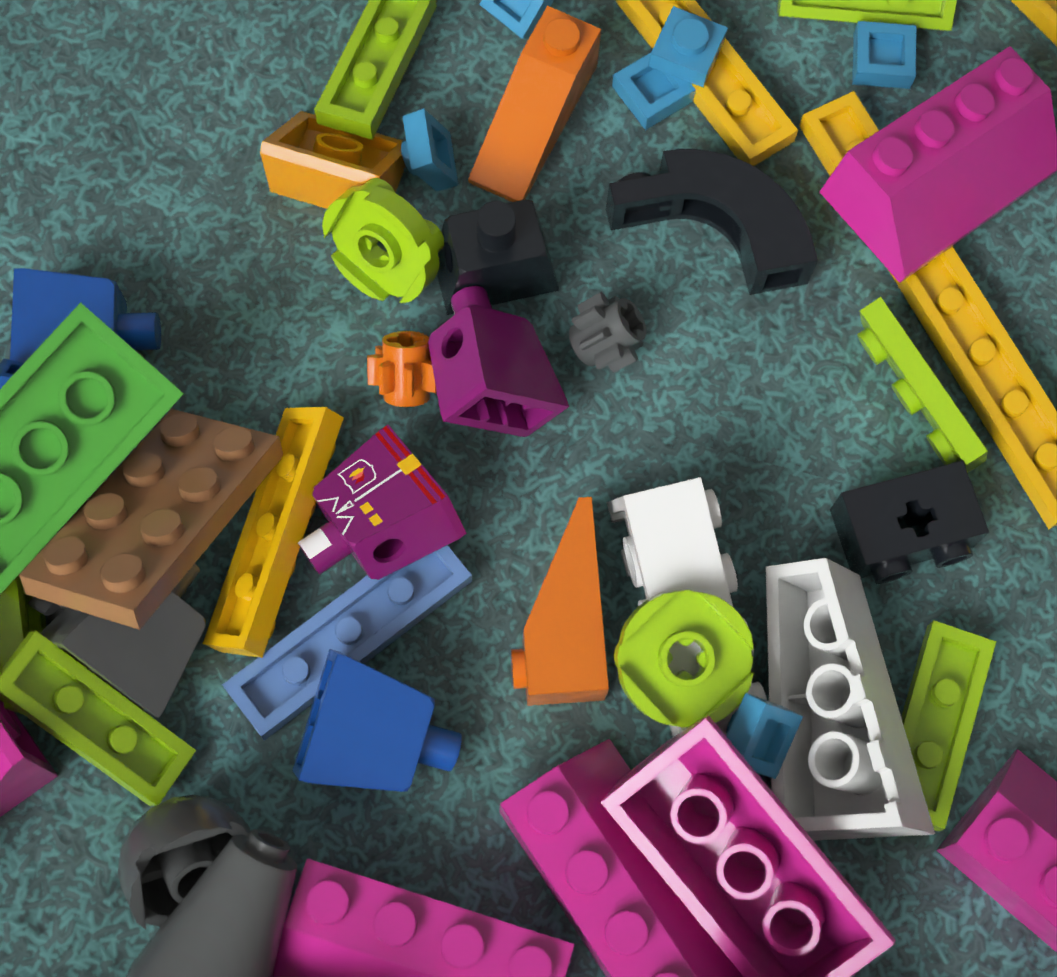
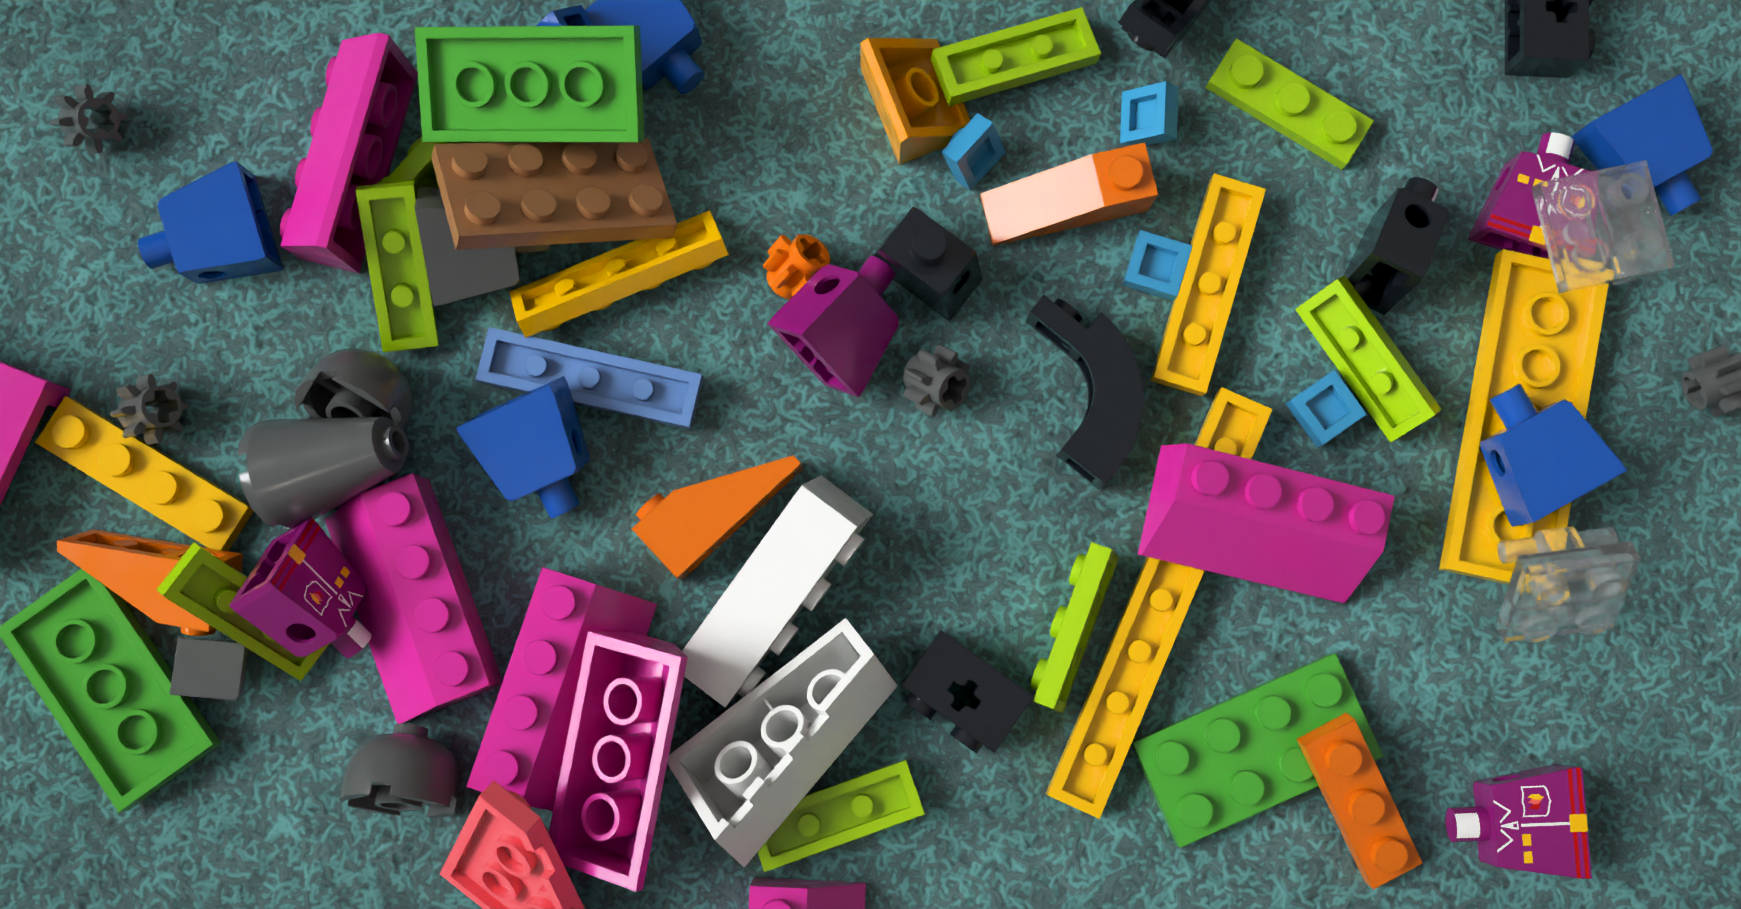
camera: 55 degrees right, 10 degrees up
(379, 214) = (871, 177): lime plate -> none
(380, 510) = (681, 331): magenta torso -> none
(687, 46) = (1203, 265): dark azure plate -> none
(724, 658) = (699, 632): lime plate -> none
(763, 733) = (715, 702): dark azure plate -> none

